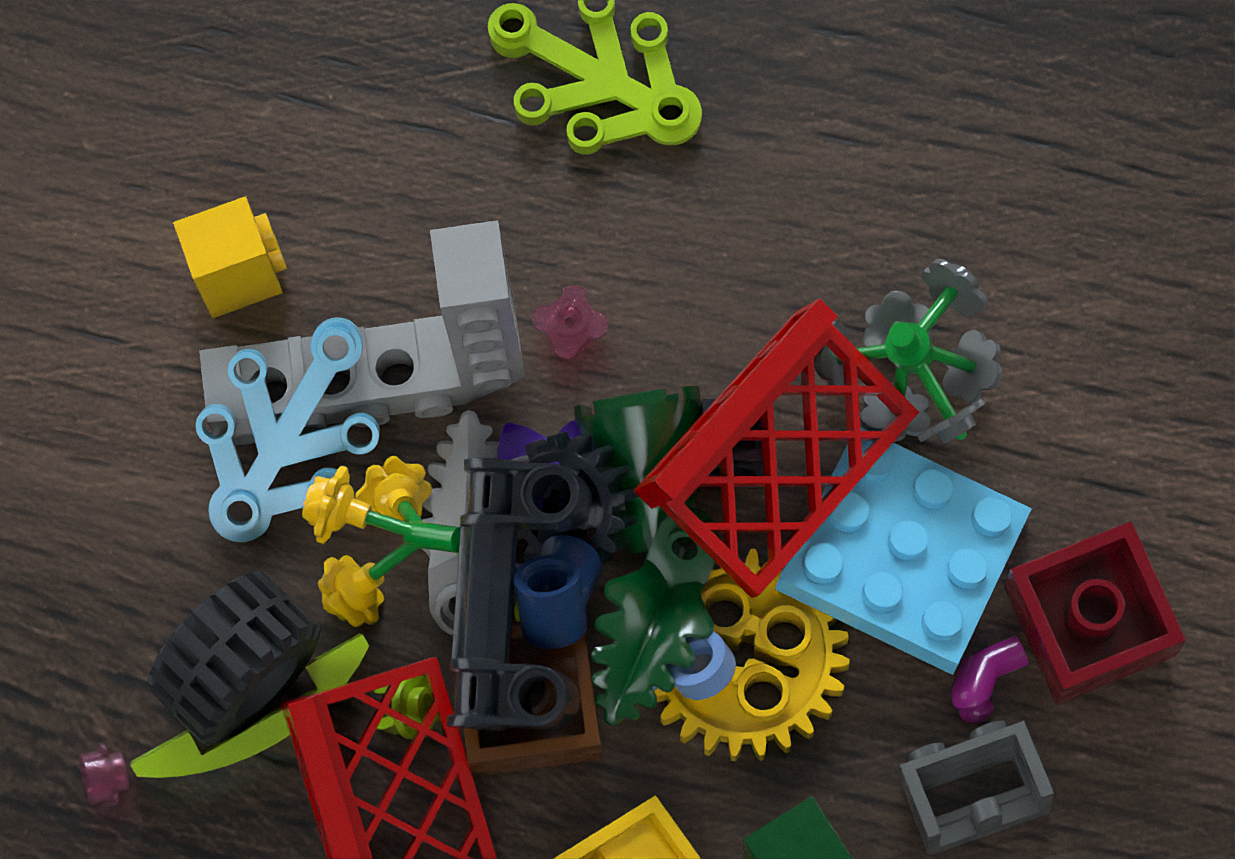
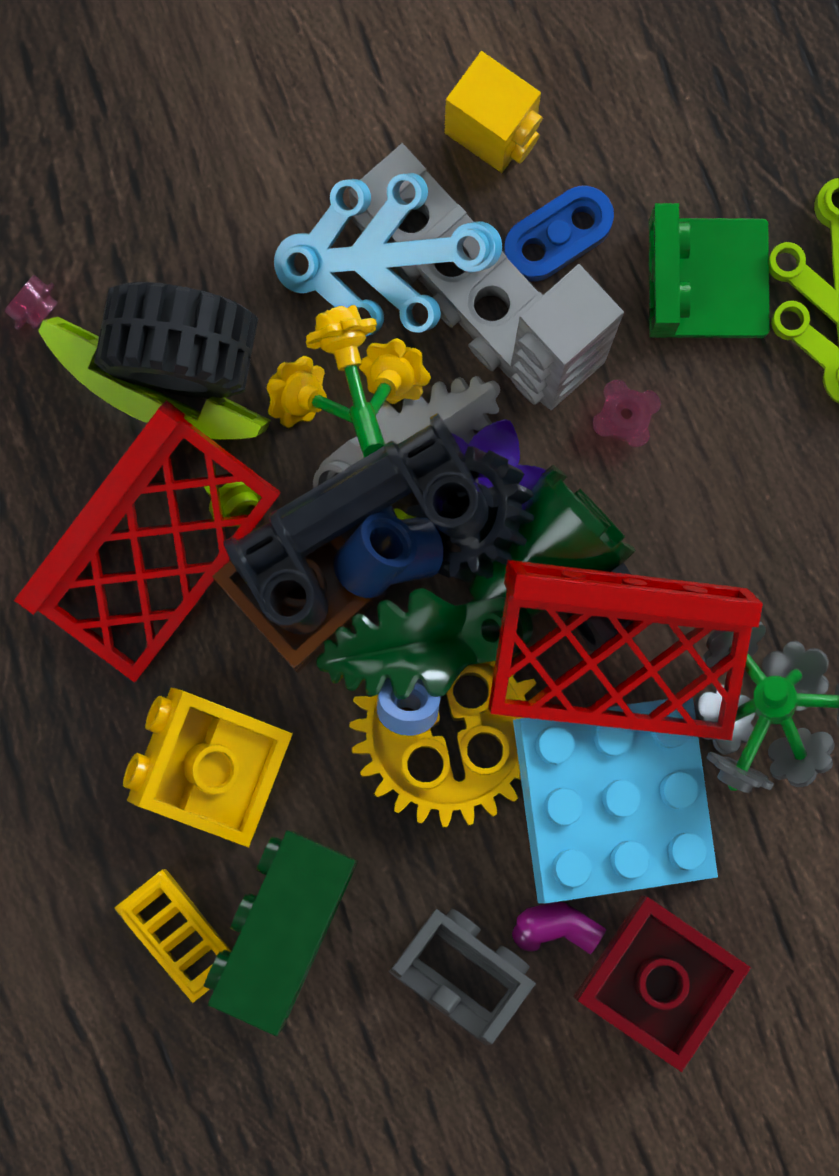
camera: 50 degrees right, 10 degrees up
(372, 279) = (557, 235): none -> blue plate
(497, 172) = (707, 276): none -> green bracket

